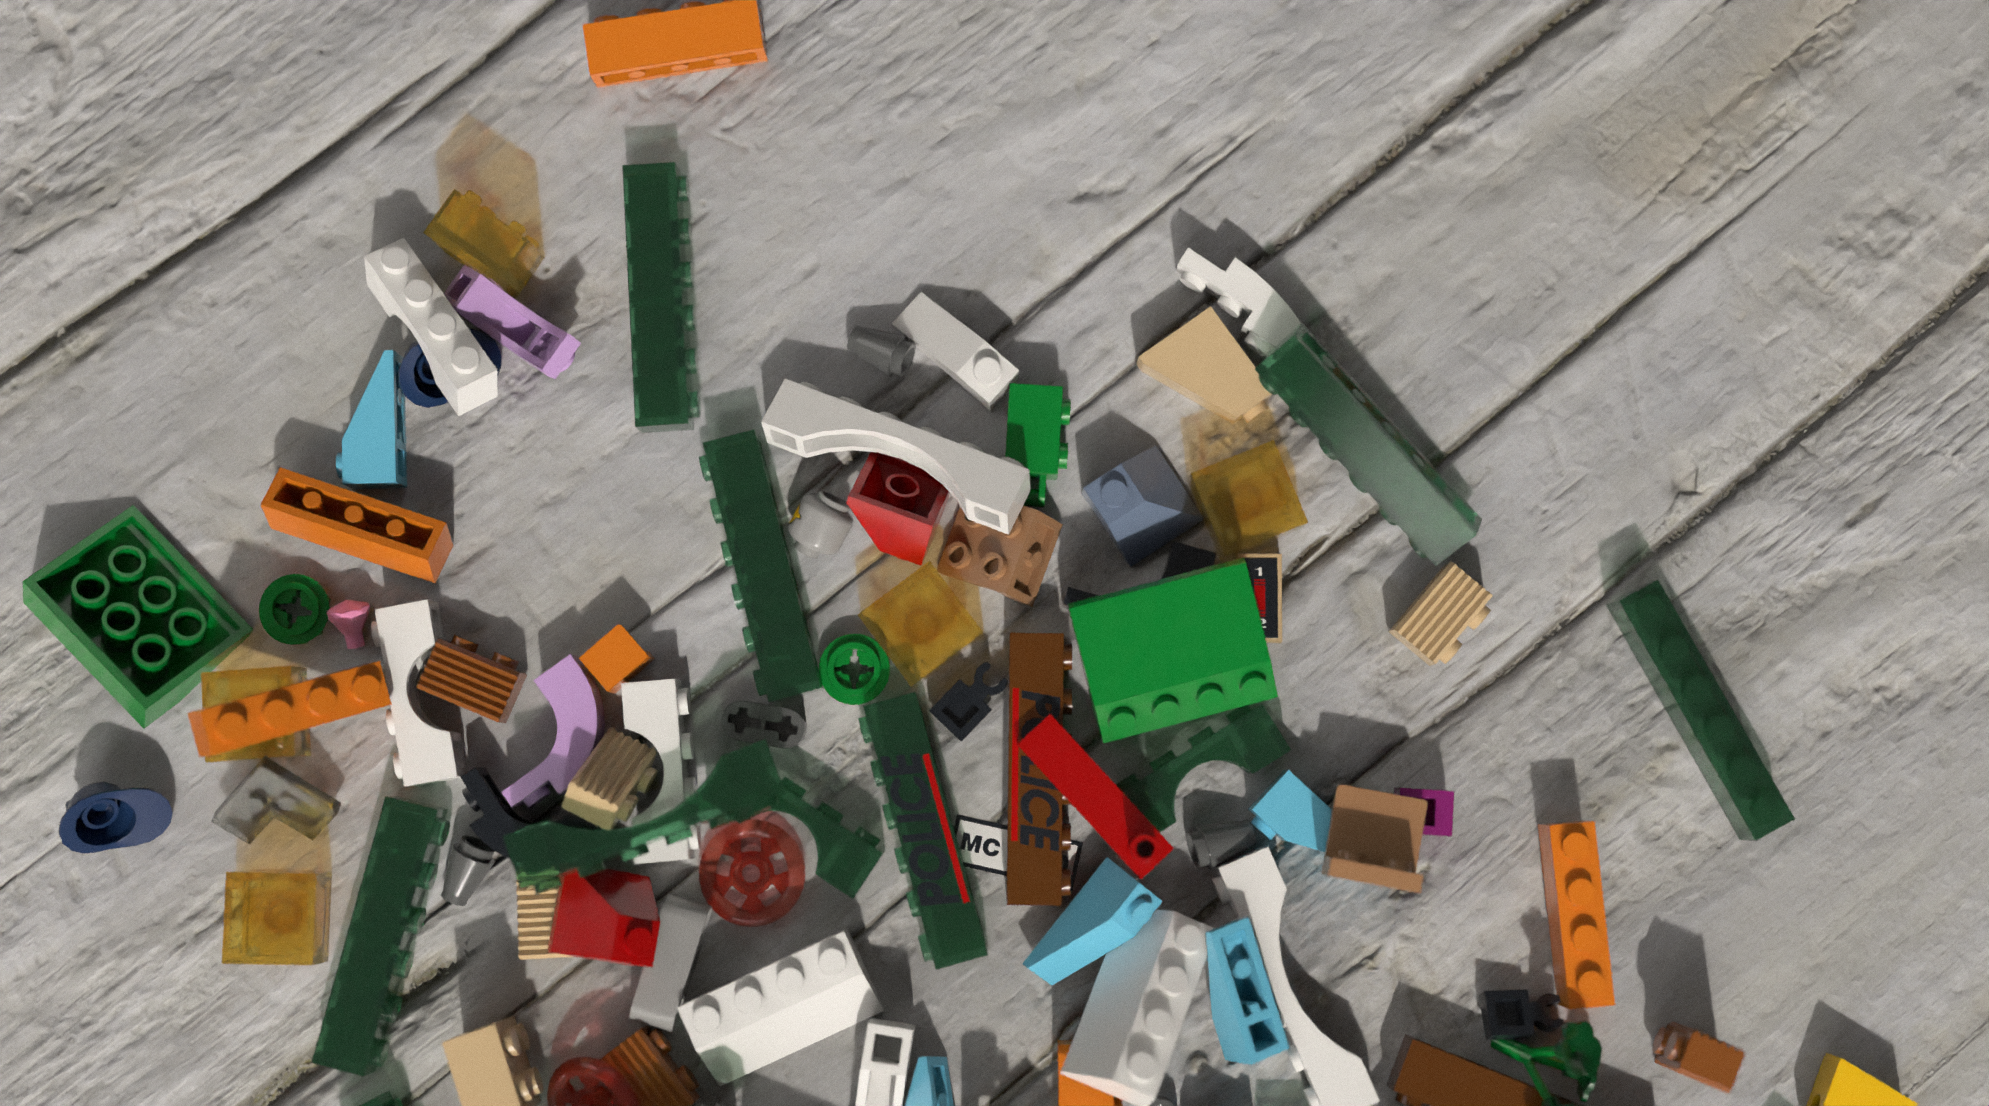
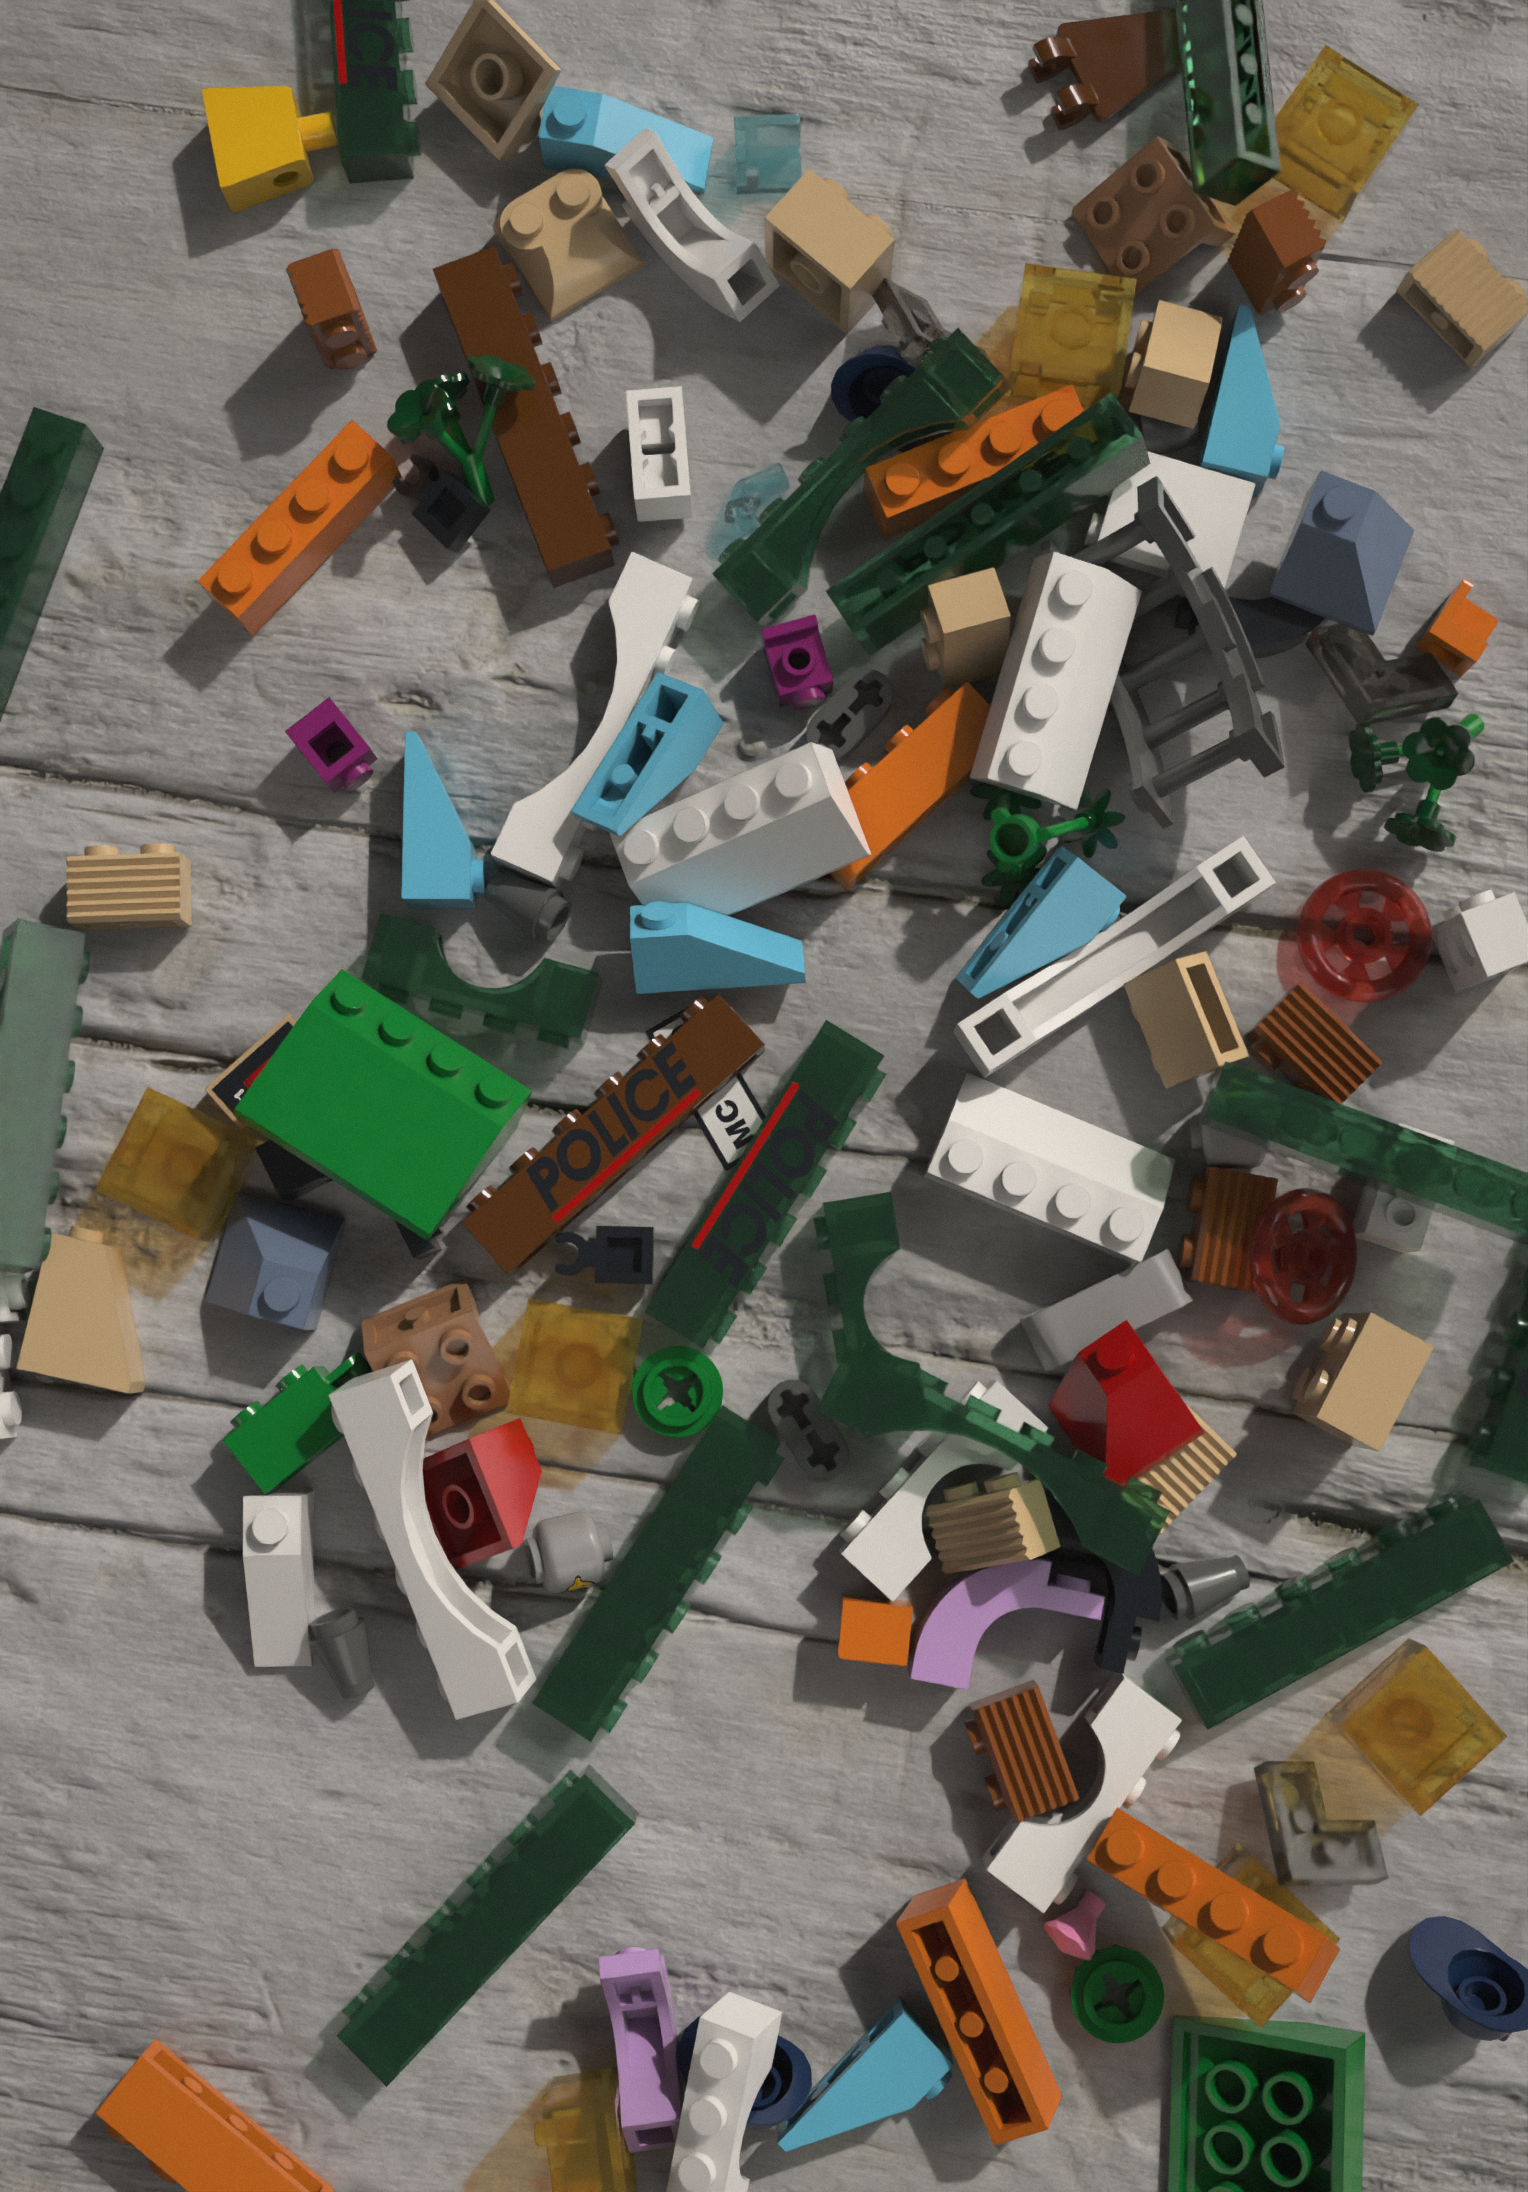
camera: 135 degrees left, 0 degrees up
(788, 883) = (989, 1277): clear red plate -> none
(1095, 796) = (588, 1053): red piece -> none
(1375, 838) = (392, 761): medium nougat bracket -> none

